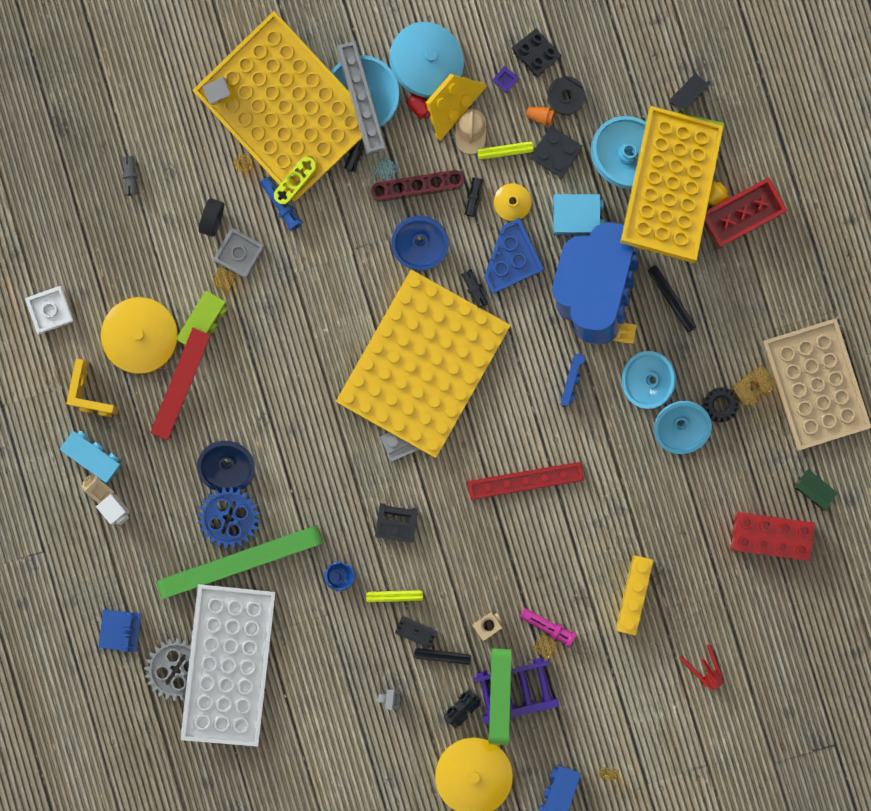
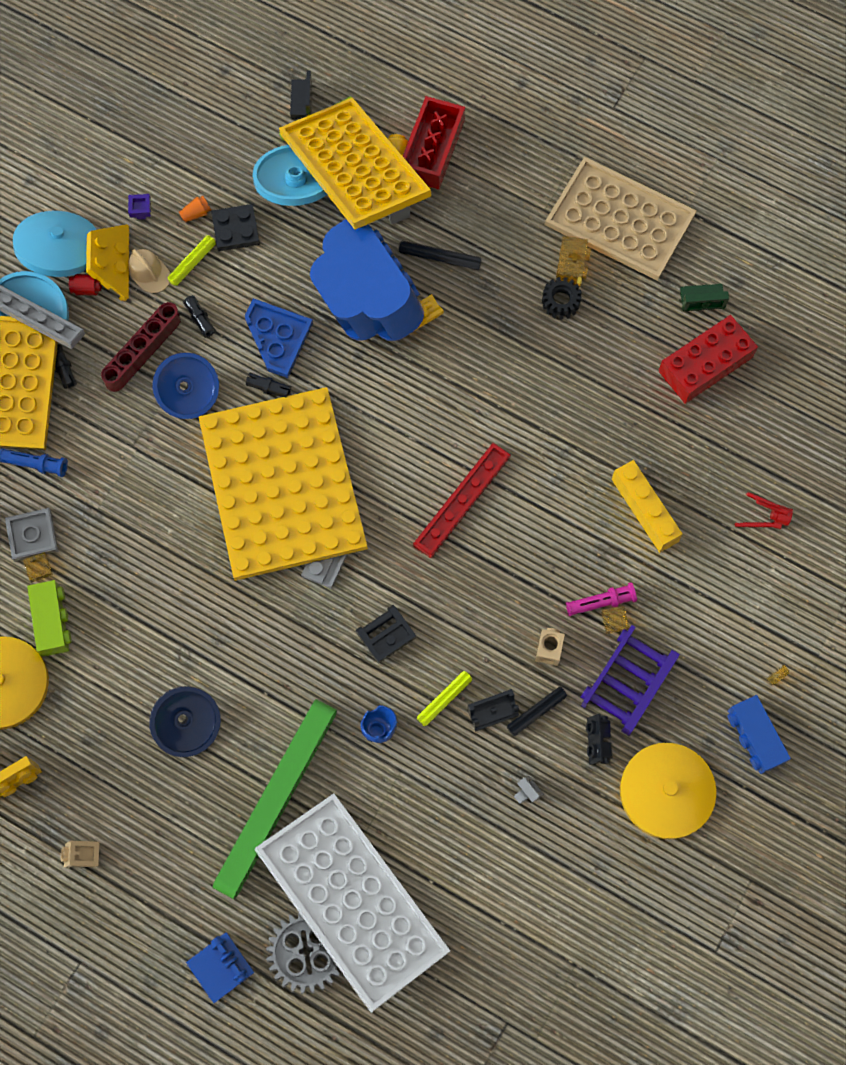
camera: 45 degrees left, 15 degrees down
(91, 456) = (48, 828): medium azure brick -> none
(114, 510) = (112, 855): white brick -> none
(180, 383) = (76, 687): red tile -> none
(244, 523) = (249, 758): blue gear -> none
(287, 180) = (21, 412): neon yellow beam -> none
(386, 169) = (101, 357): clear light blue tile -> none
(500, 696) = (622, 692): bright green beam -> none
(508, 211) = (235, 303): yellow dish -> none
(536, 52) = (146, 167): black hinge -> none
(567, 106) = (210, 171): black plate -> none
(572, 379) = (421, 384): blue plate -> none
(576, 213) = (295, 256): medium azure brick -> none
(638, 378) = (471, 323): medium azure dish -> none
(684, 436) = (560, 338): medium azure dish -> none

